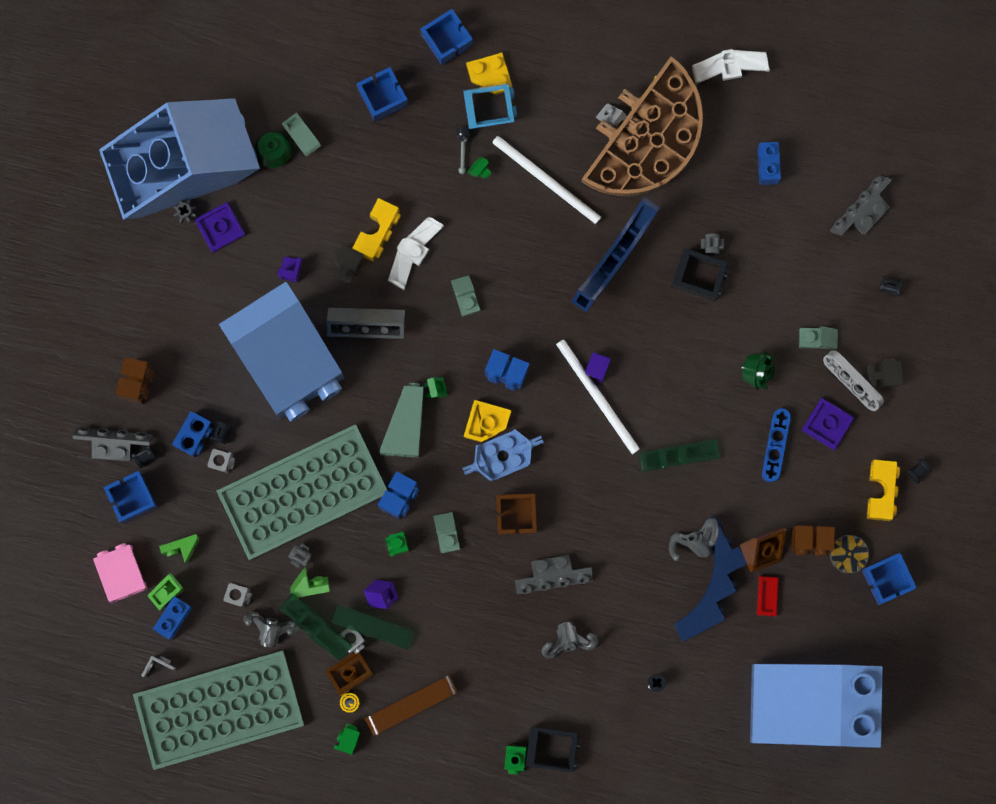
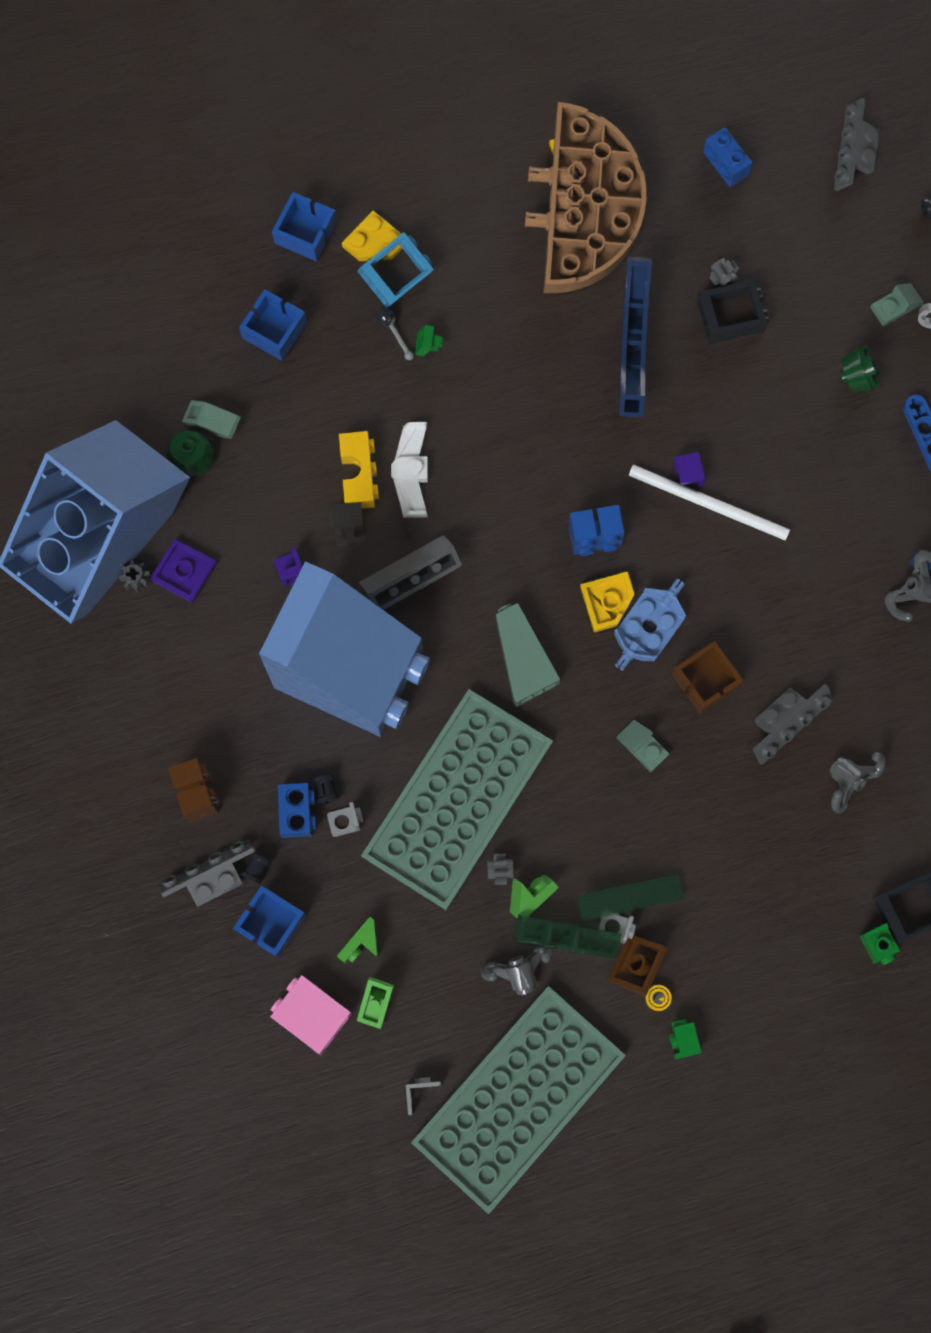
camera: 30 degrees left, 5 degrees down
(172, 618) = (402, 1027): blue brick -> none
(245, 595) = (466, 952): light grey bracket -> none
(381, 594) = (615, 856): dark purple panel -> none
(397, 544) = (598, 790): green brick -> none
(398, 497) = (566, 733): blue piece -> none
(411, 705) = (728, 957): reddish brown beam -> none
(437, 387) = (531, 596): green tile -> none
(465, 296) = (496, 481): sand green slope -> none
(547, 180) = (505, 312): white piece -> none
(611, 115) = (531, 203): light grey bracket -> none
(678, 455) = (835, 511): clear green slope -> none
(730, 64) = (620, 82): white plate -> none

